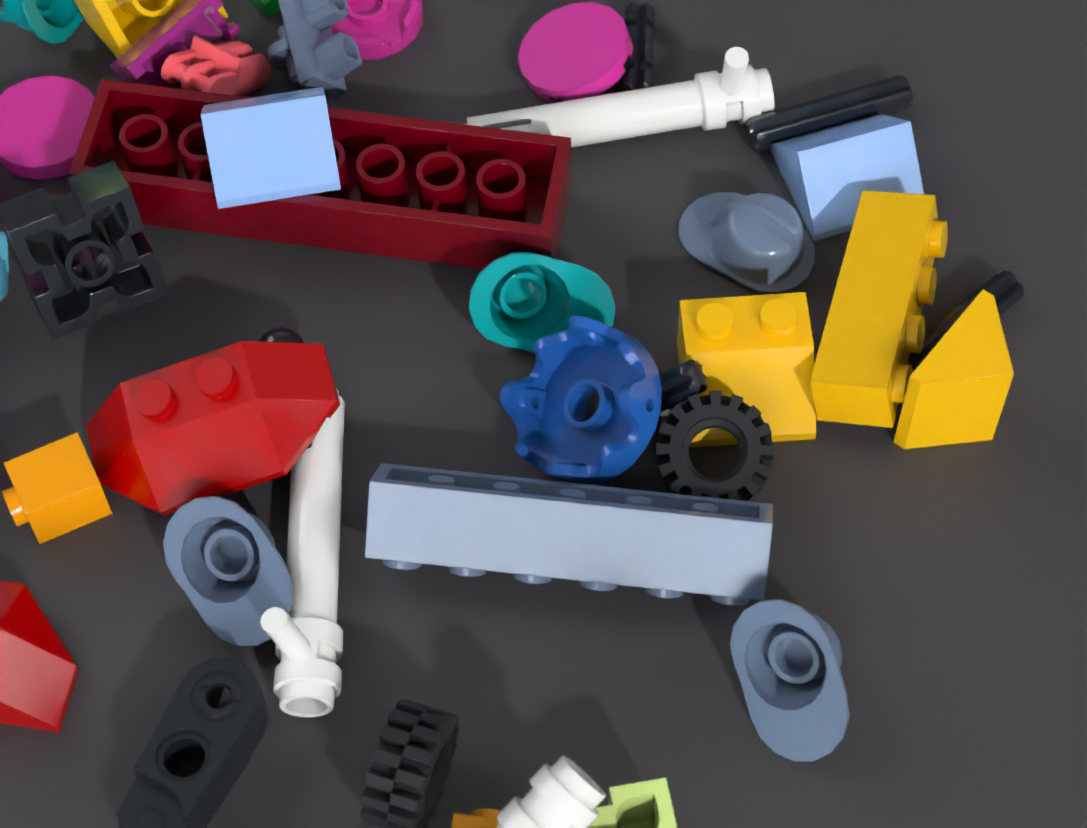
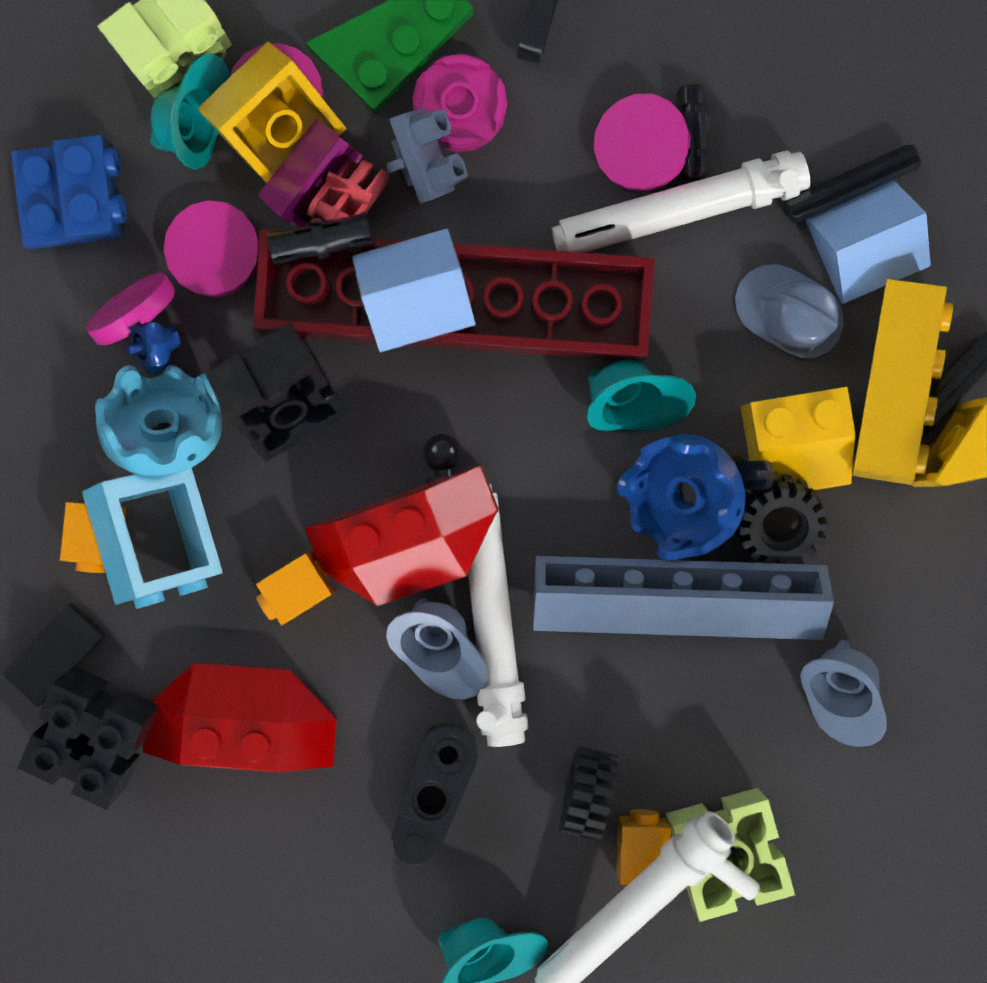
camera: 10 degrees left, 30 degrees up
(167, 80) = (319, 238): none -> black pin

